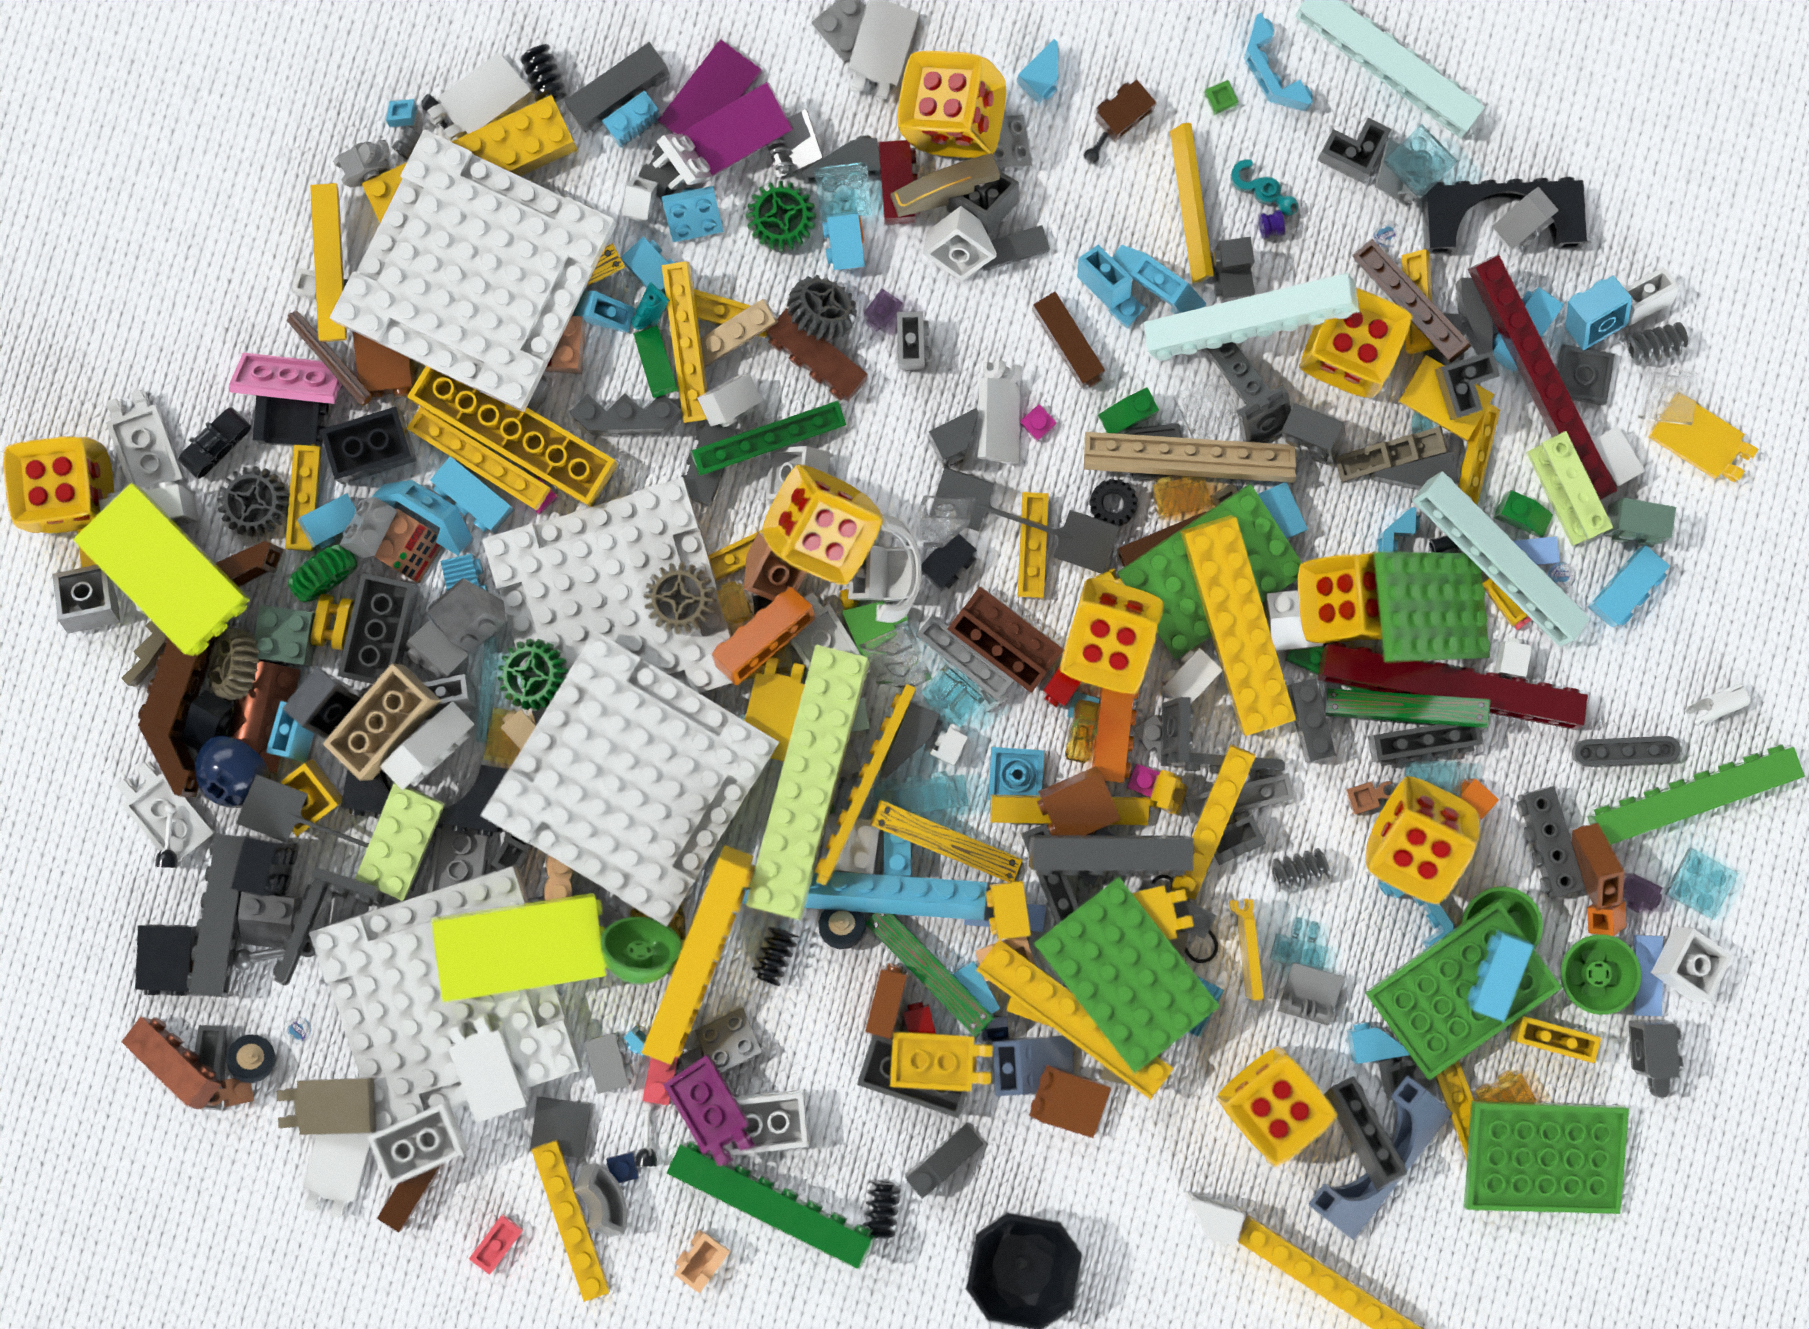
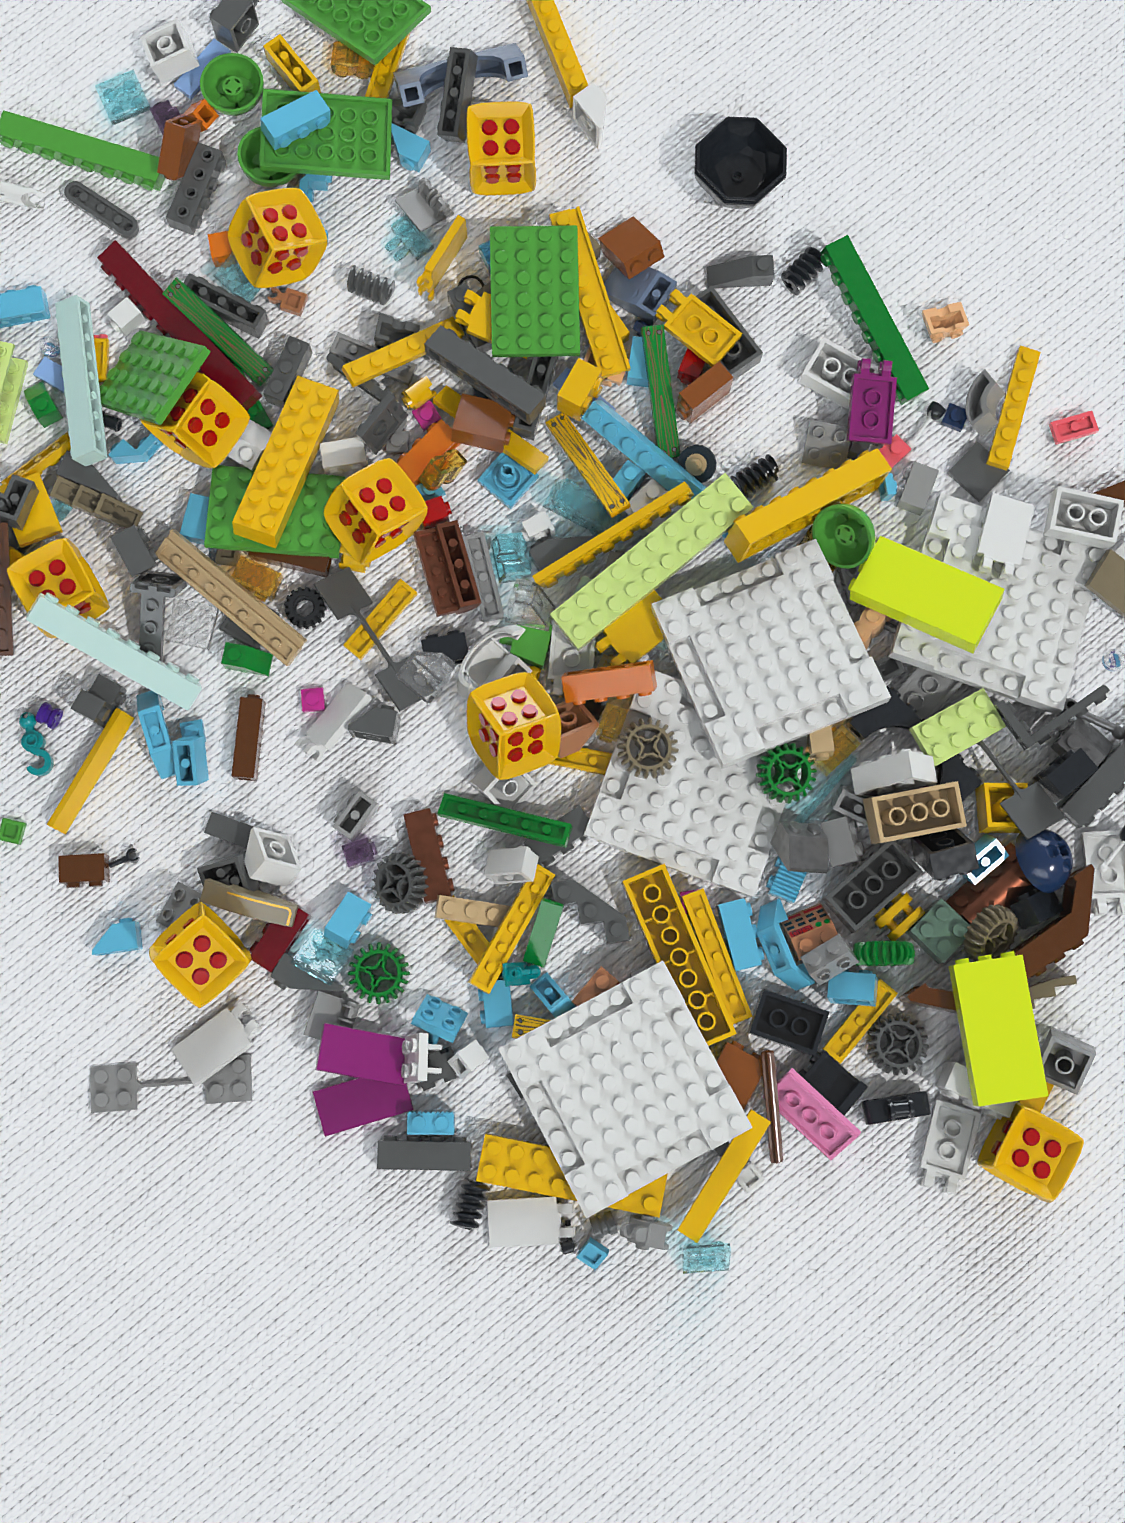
camera: 145 degrees left, 5 degrees down
(302, 174) = (706, 1258): none -> clear light blue plate

